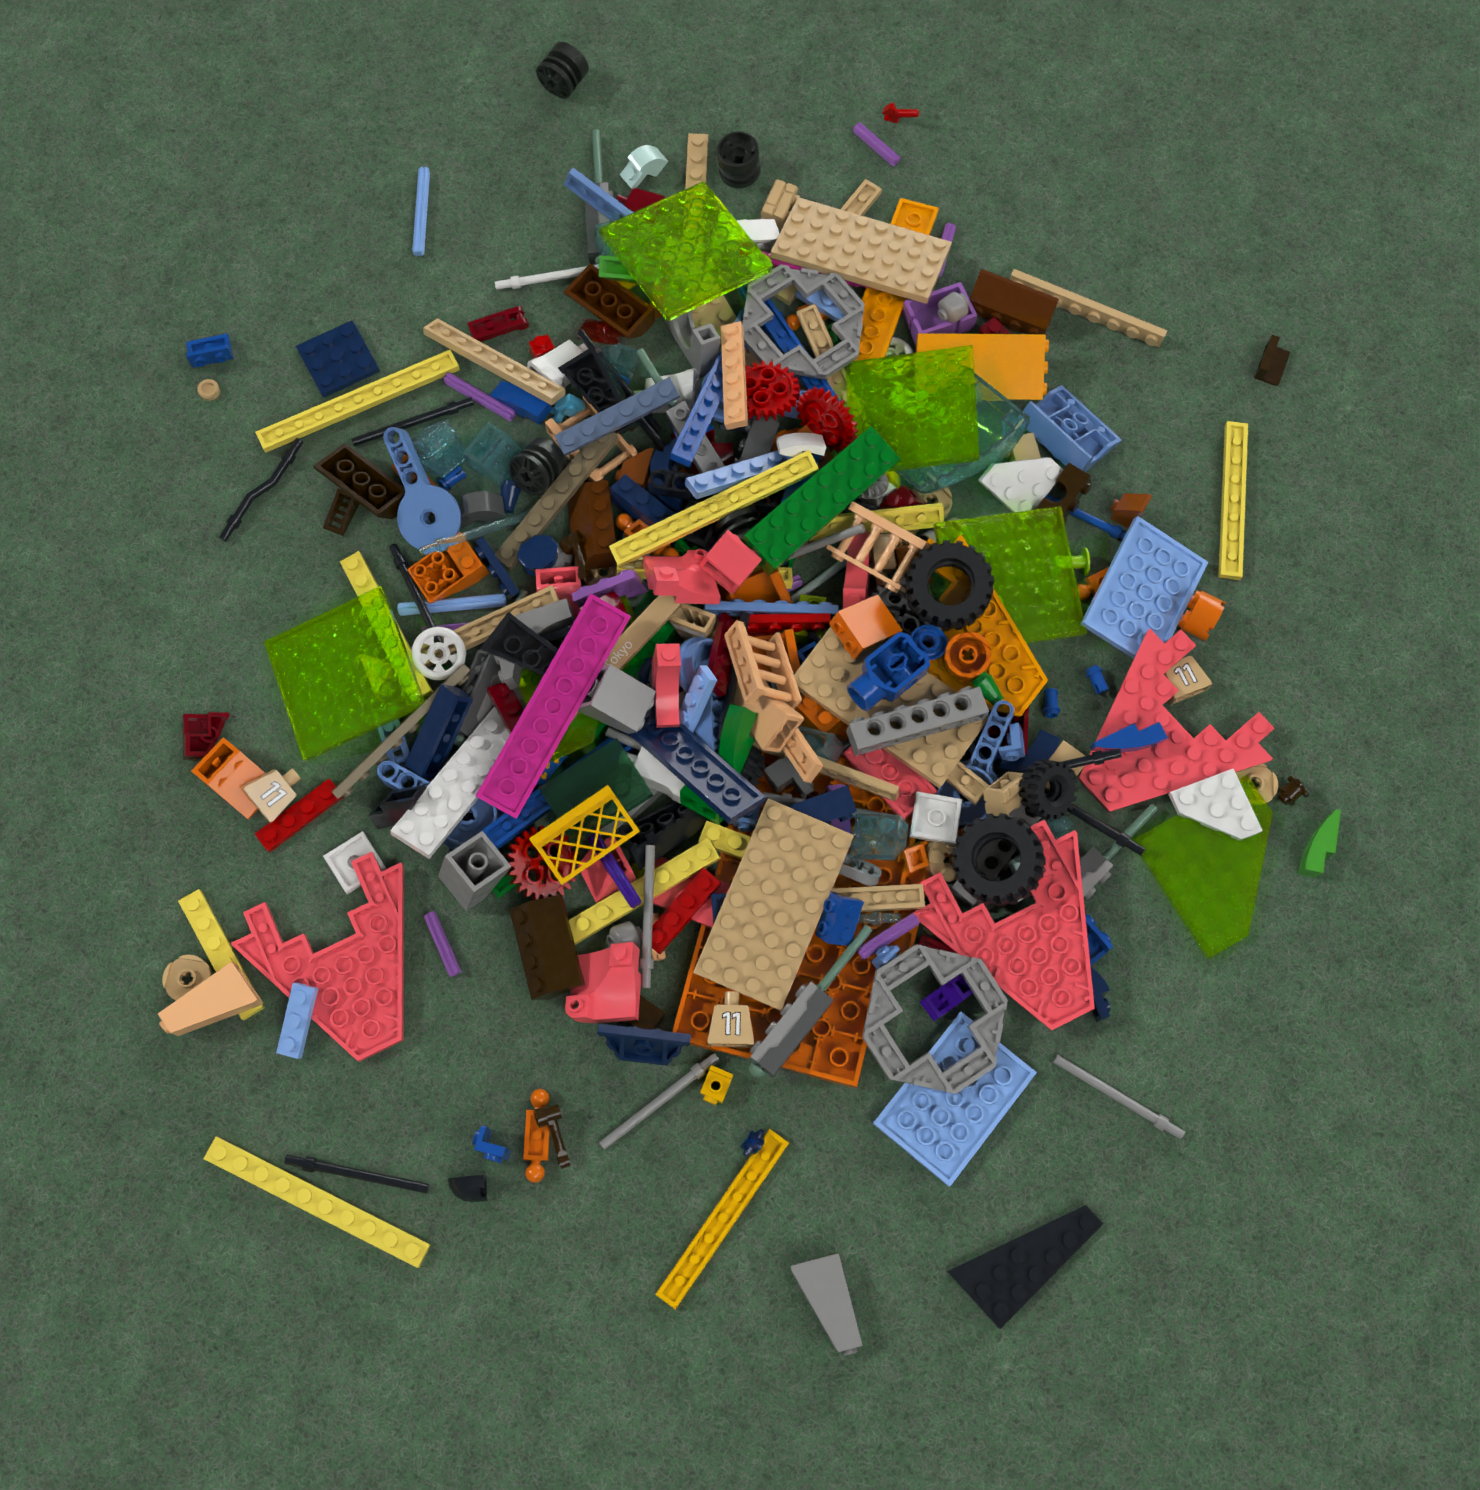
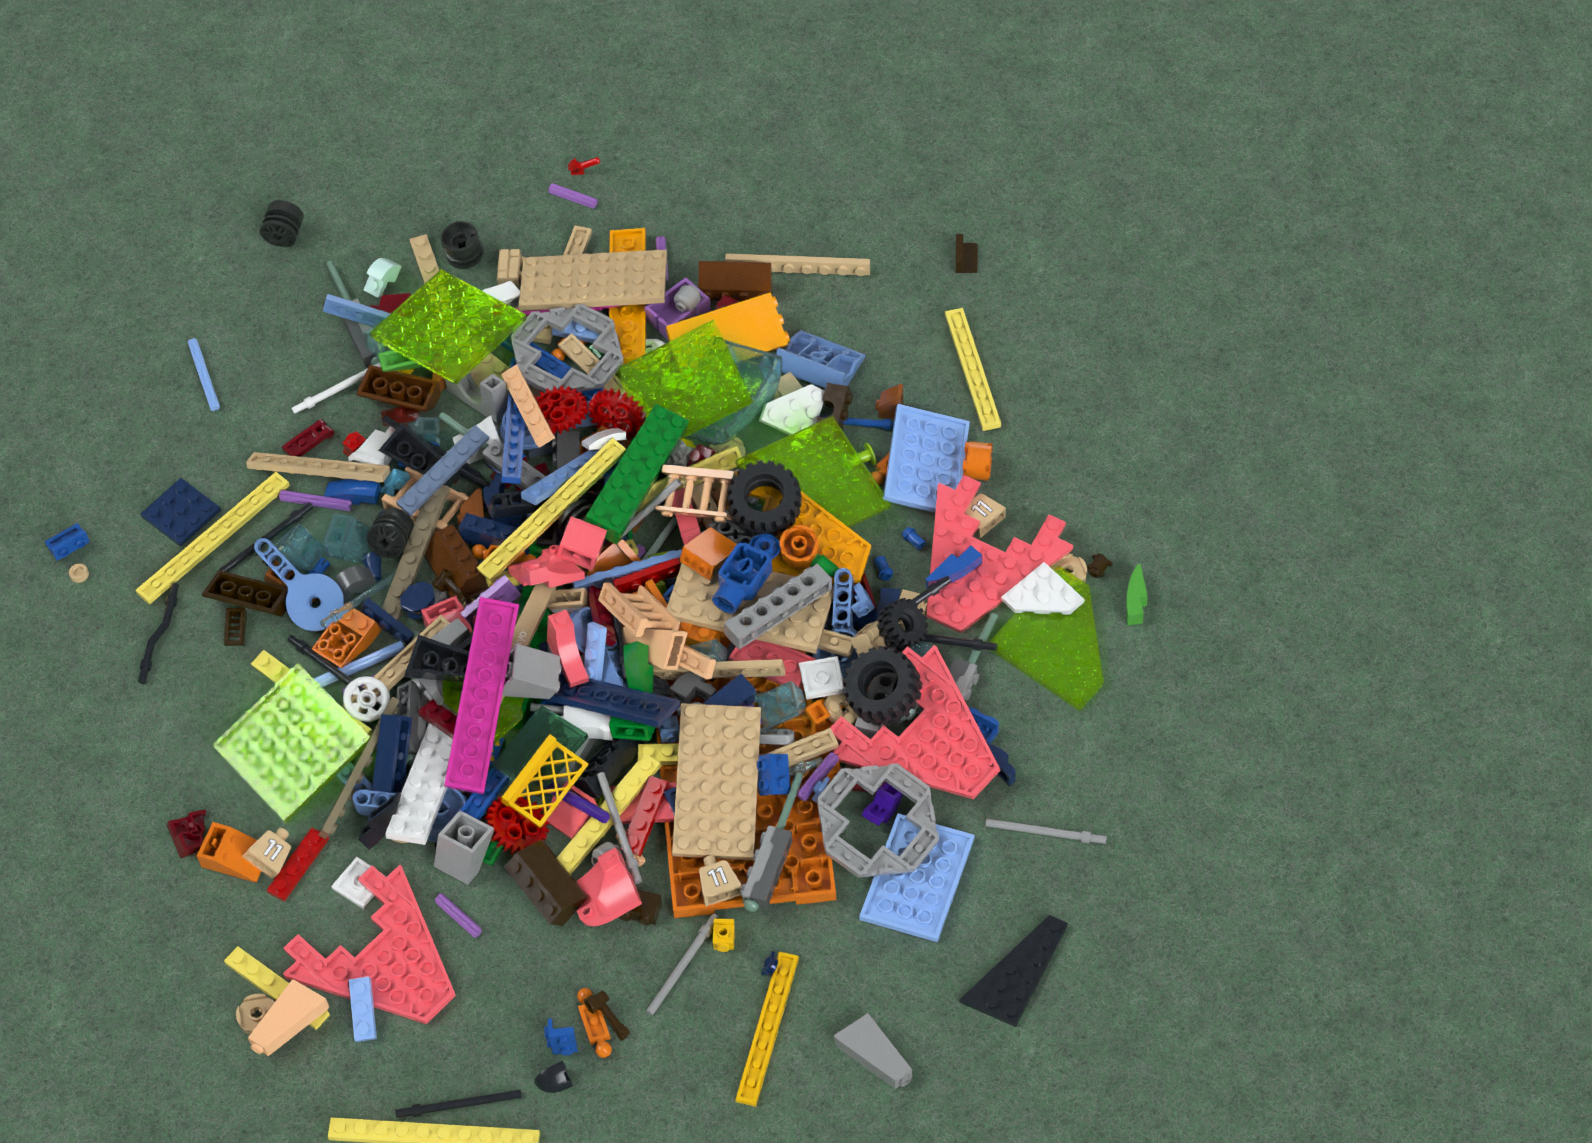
camera: 15 degrees left, 15 degrees down
(643, 1044) = (653, 923): dark blue wing -> none

